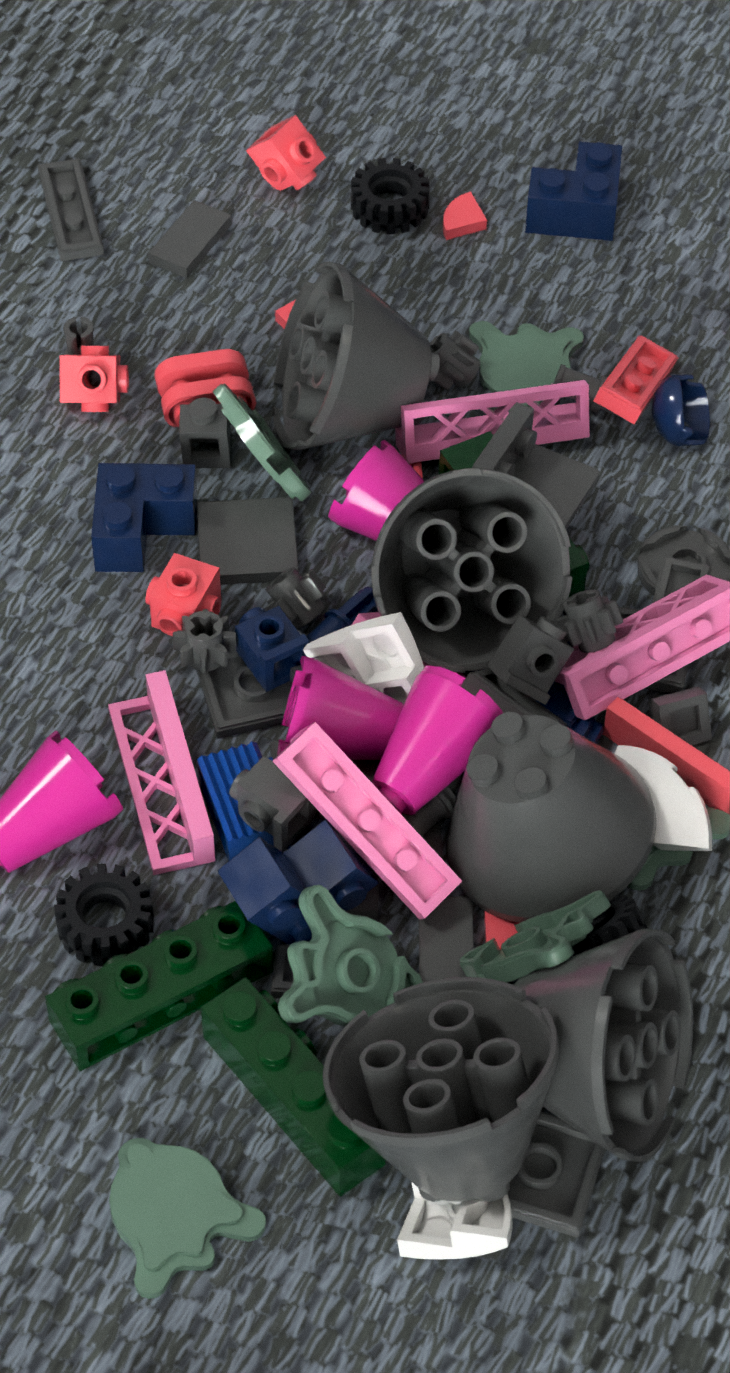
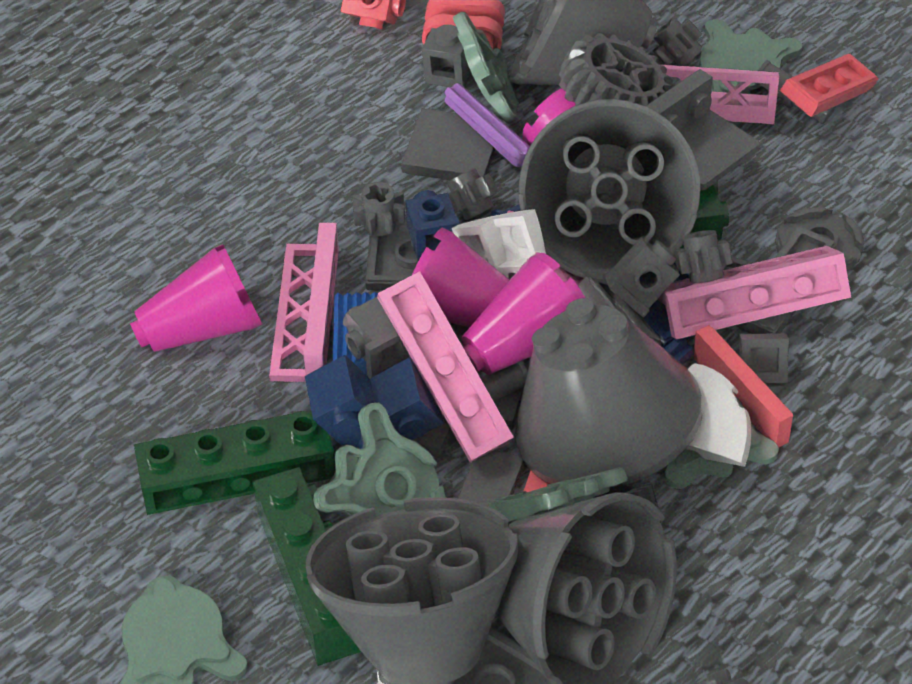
camera: 20 degrees right, 5 degrees down
(100, 888) = (208, 379): black tyre -> none
(136, 503) = (369, 97): dark blue brick -> none
(182, 590) = (379, 163): coral brick -> none
(283, 508) = (486, 124): none -> medium lavender axle
(421, 431) = (611, 70): none -> dark grey gear
(681, 402) = (862, 110): dark blue hair -> none

